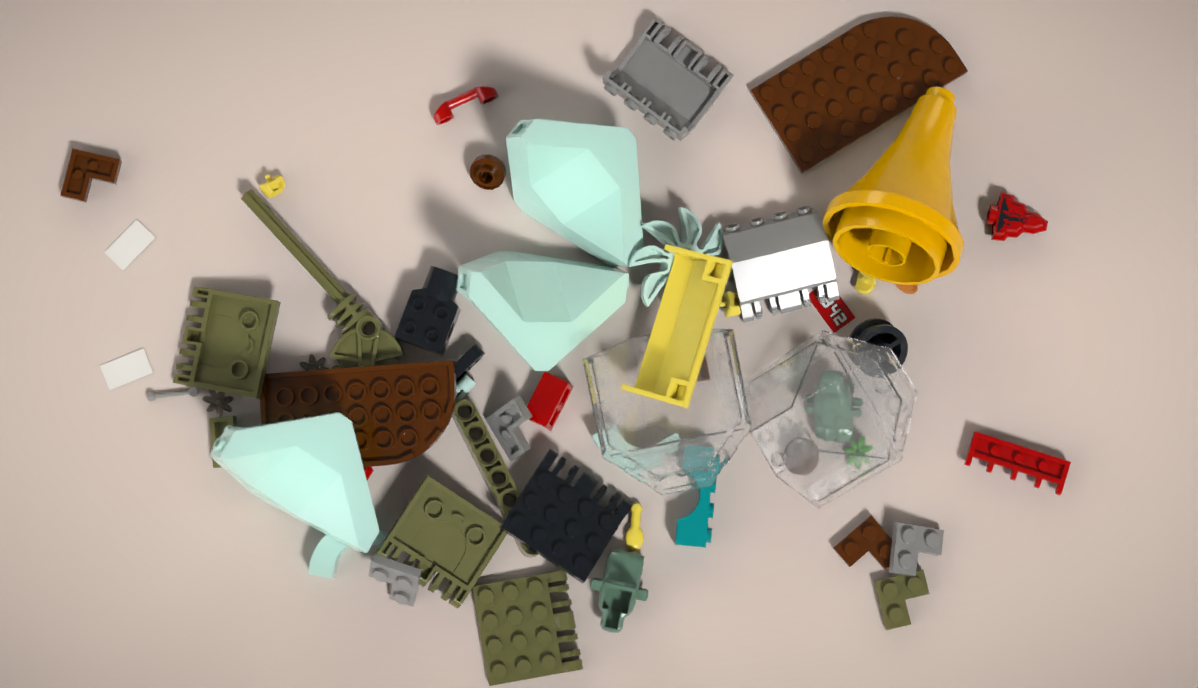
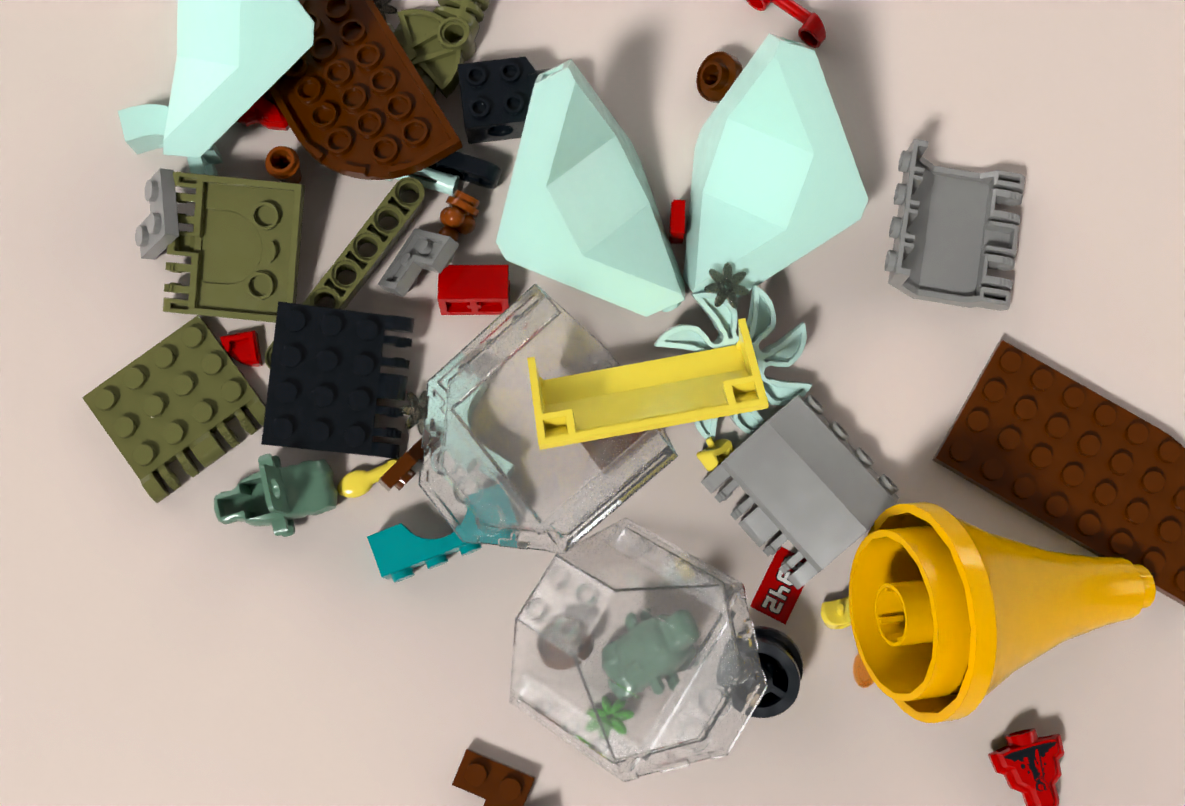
camera: 60 degrees right, 5 degrees down
(396, 479) = (284, 164): none -> dark orange cone
(493, 387) = (459, 216): none -> dark orange piece
(508, 568) = (243, 348): none -> red tile
(570, 250) = (677, 222): none -> red tile
(610, 475) = (416, 410): none -> clear smoke plant
(638, 240) = (731, 283): none -> clear smoke plant
(645, 501) = (401, 471): none -> reddish brown plate

